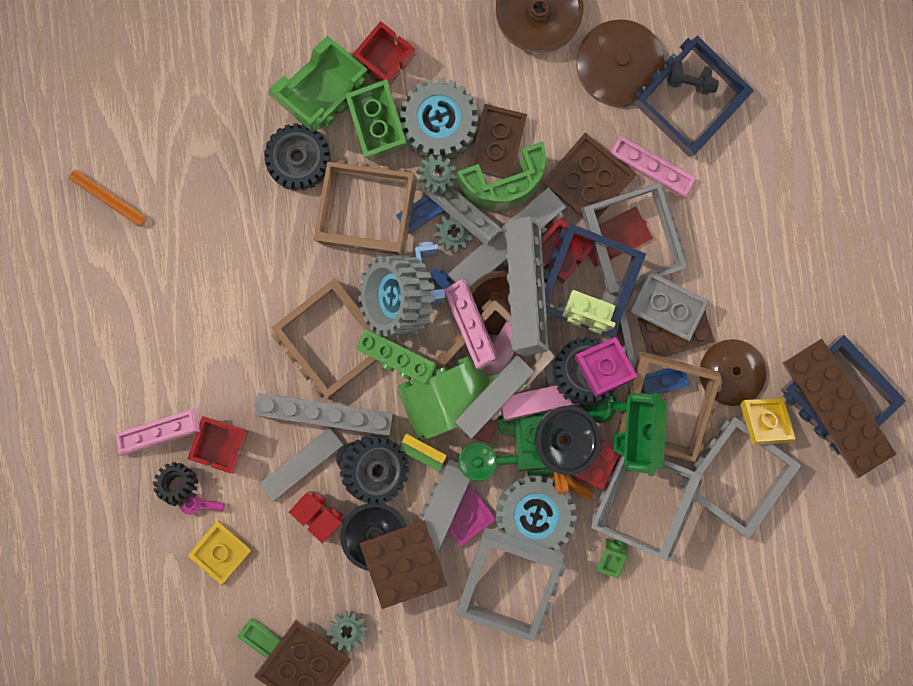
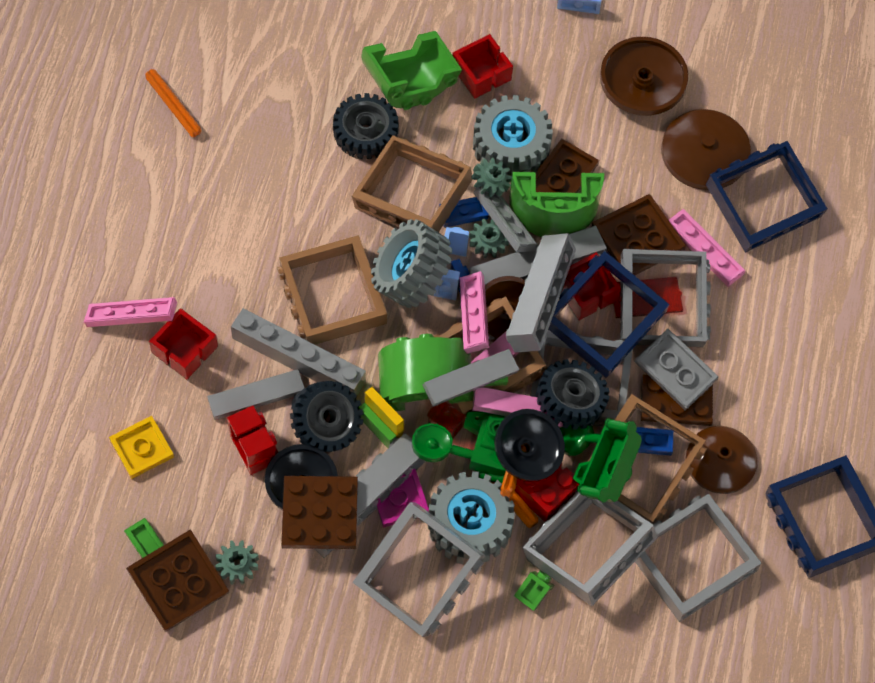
camera: 20 degrees right, 20 degrees down
(166, 477) = (129, 374): black tyre -> none
(196, 503) = (134, 391): dark pink plate -> none
(376, 120) = (452, 116): bright green slope -> none
(396, 357) = (389, 317): bright green bracket -> none
(589, 311) = (593, 334): yellowish green bracket -> none
(605, 366) = (592, 391): dark pink tile -> none
(704, 84) = (779, 183): black piece -> none
(767, 421) = (741, 510): yellow tile -> none
(839, 408) = (818, 521): reddish brown plate -> none

